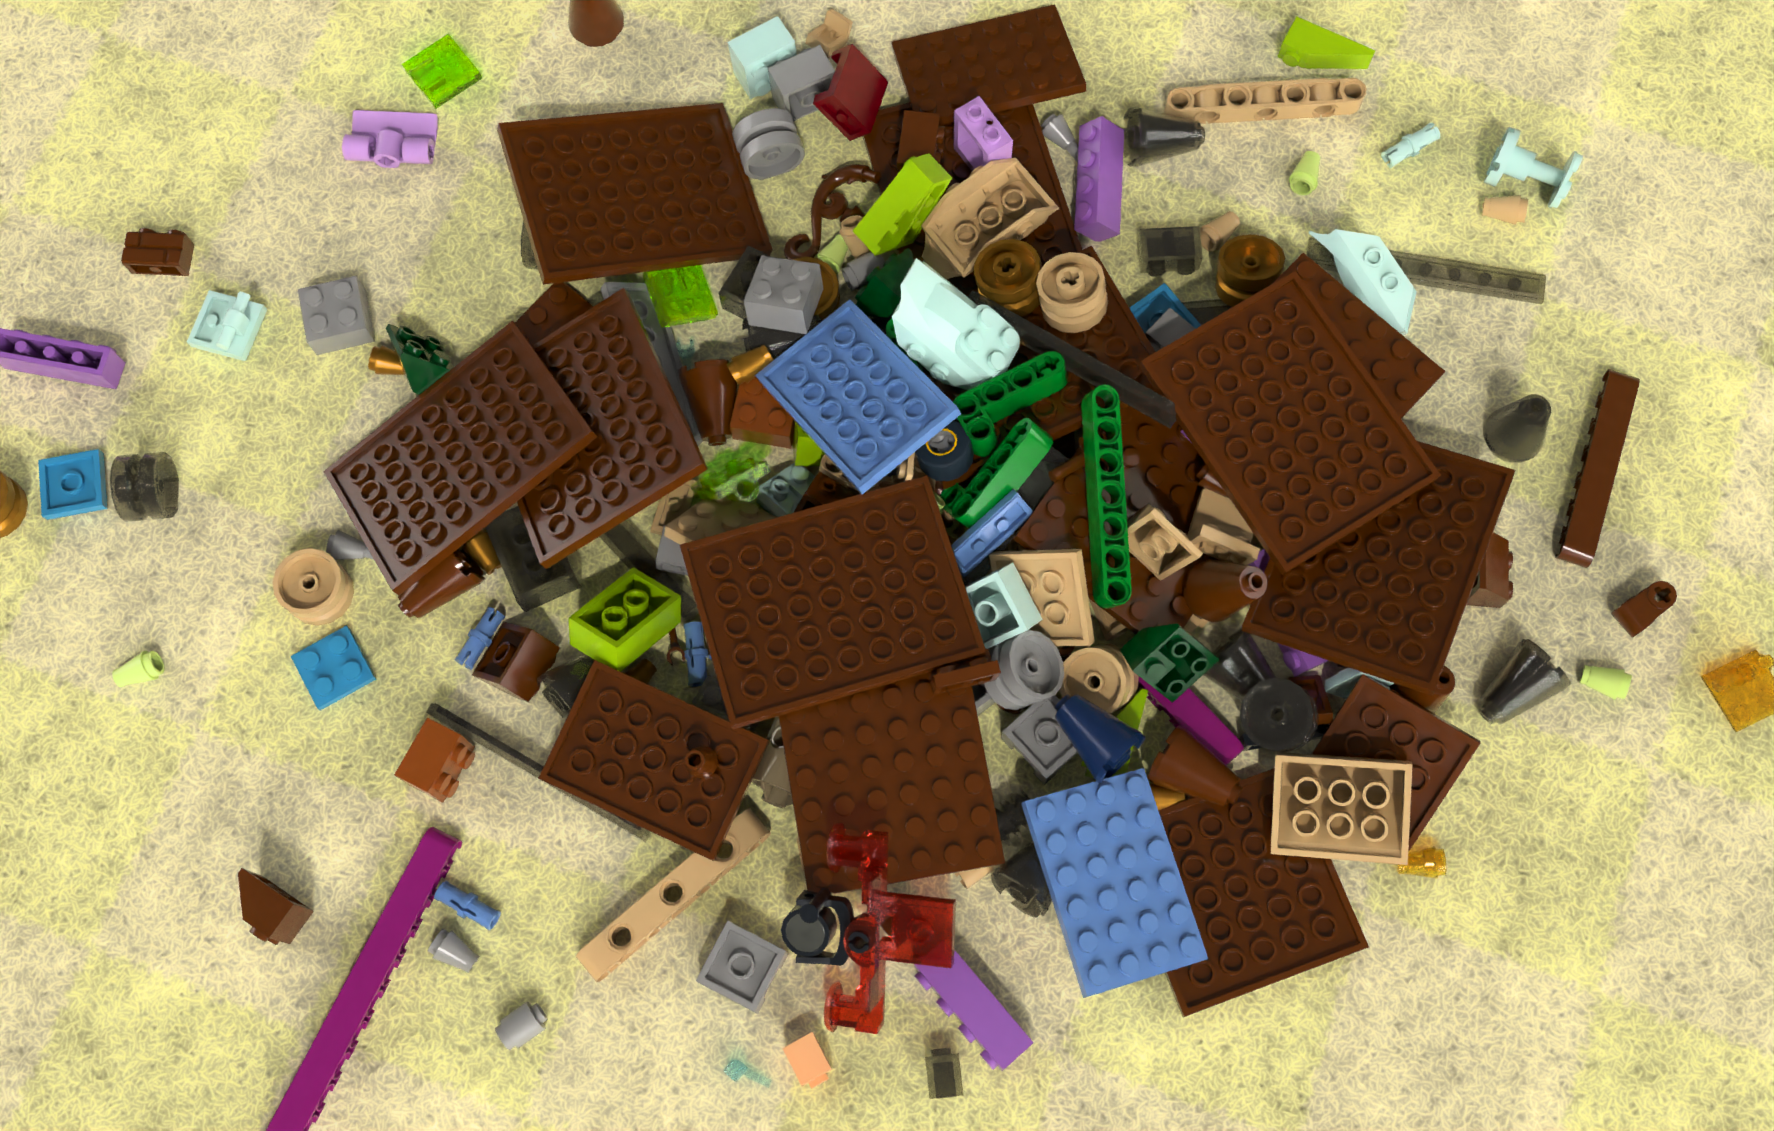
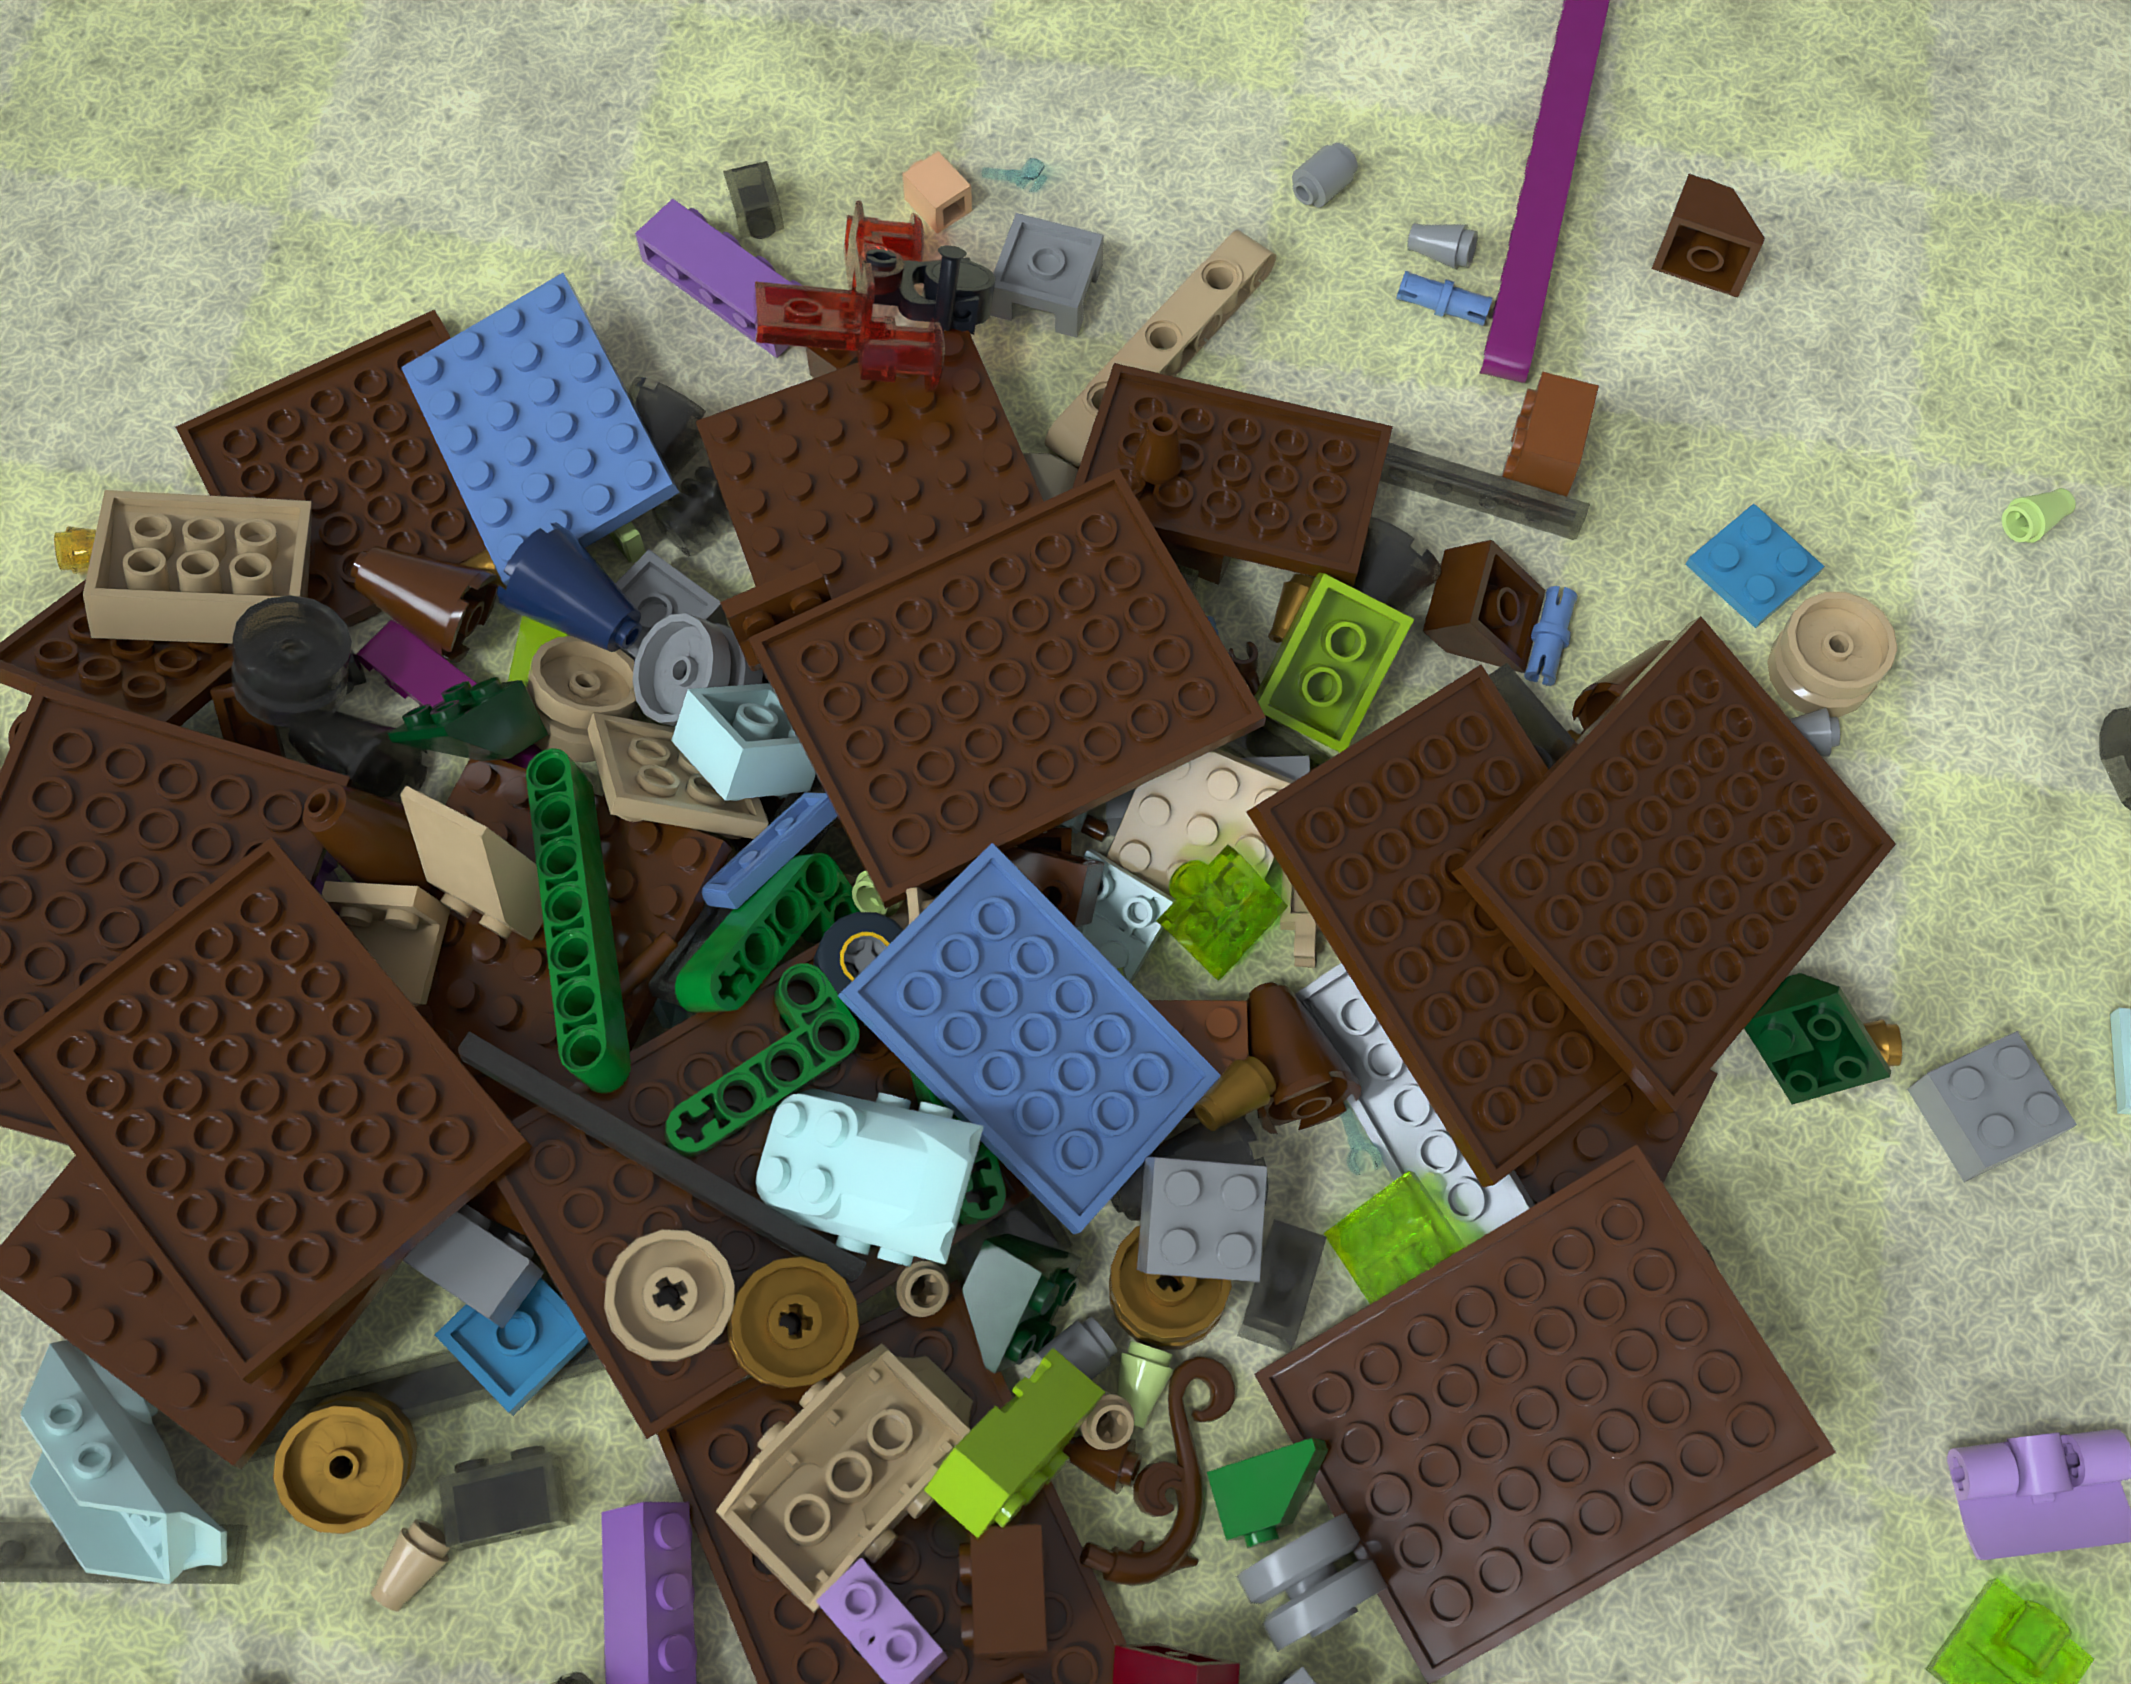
camera: 165 degrees right, 5 degrees down
(780, 193) = (1265, 1490): none -> green slope

